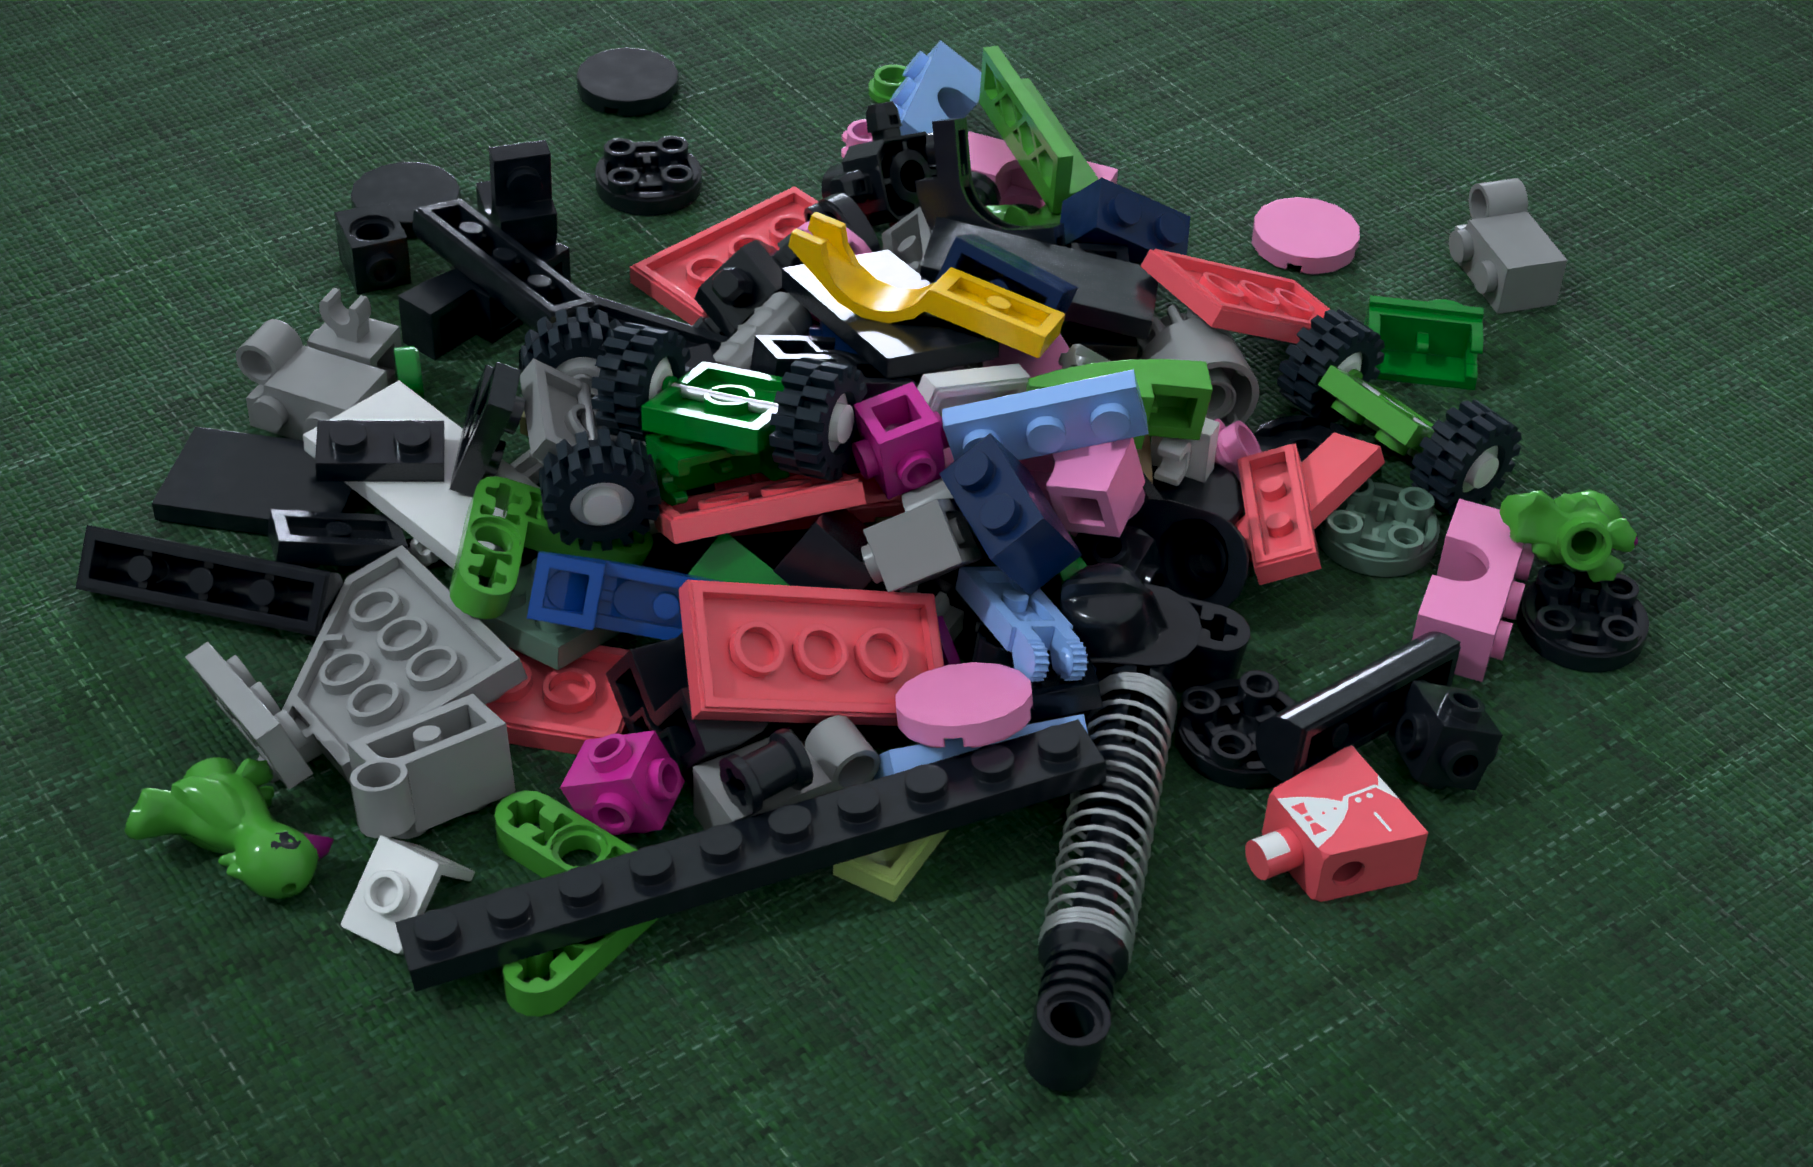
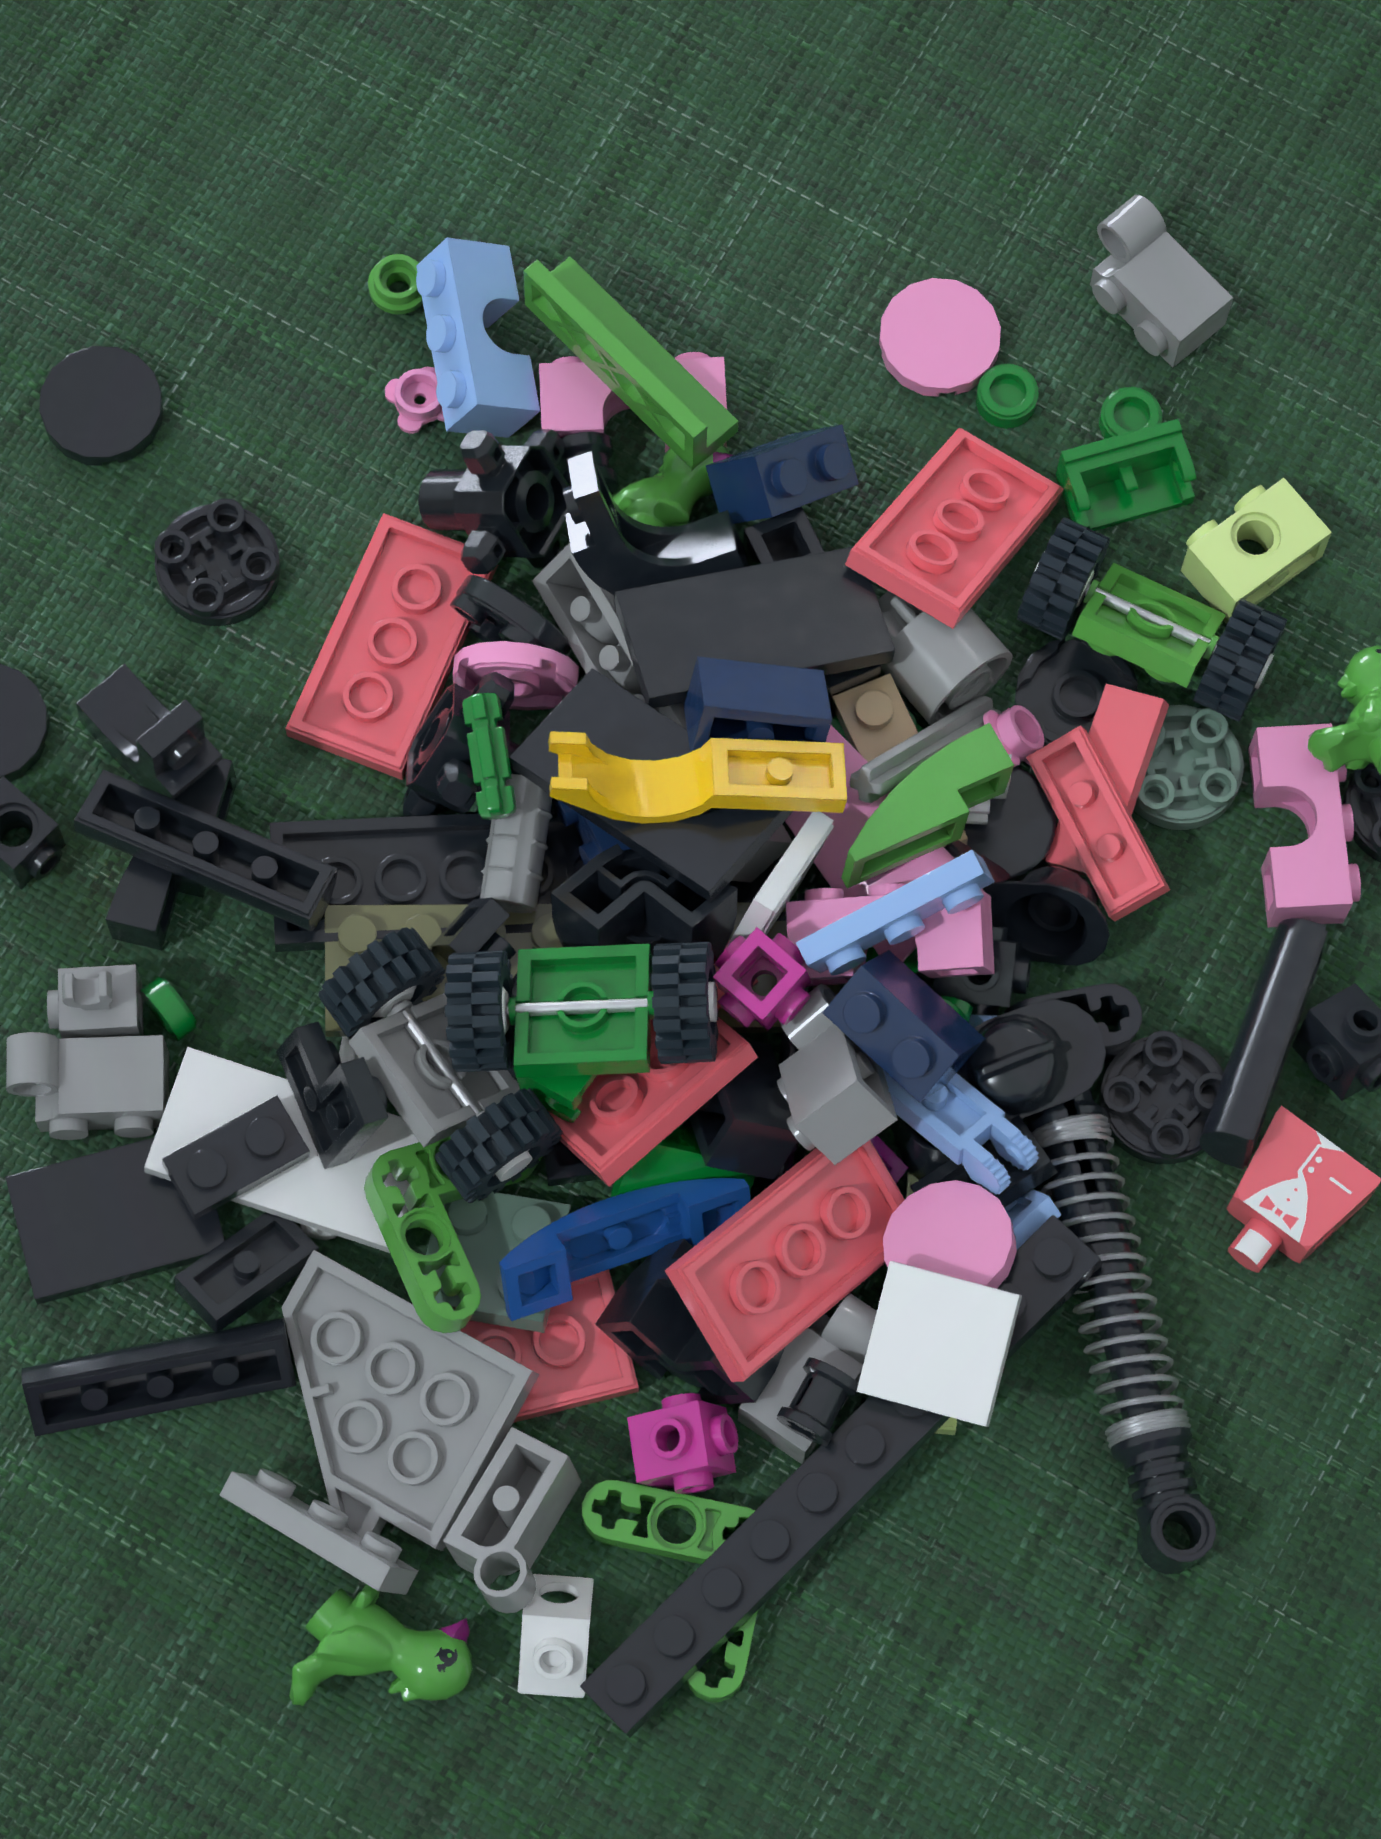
camera: 25 degrees left, 30 degrees up
(765, 266) = (489, 756): none -> green axle
(906, 750) = (939, 1343): none -> white tile
(1344, 281) = (1007, 396): none -> green tile
(1536, 401) = (1276, 520): none -> yellowish green brick

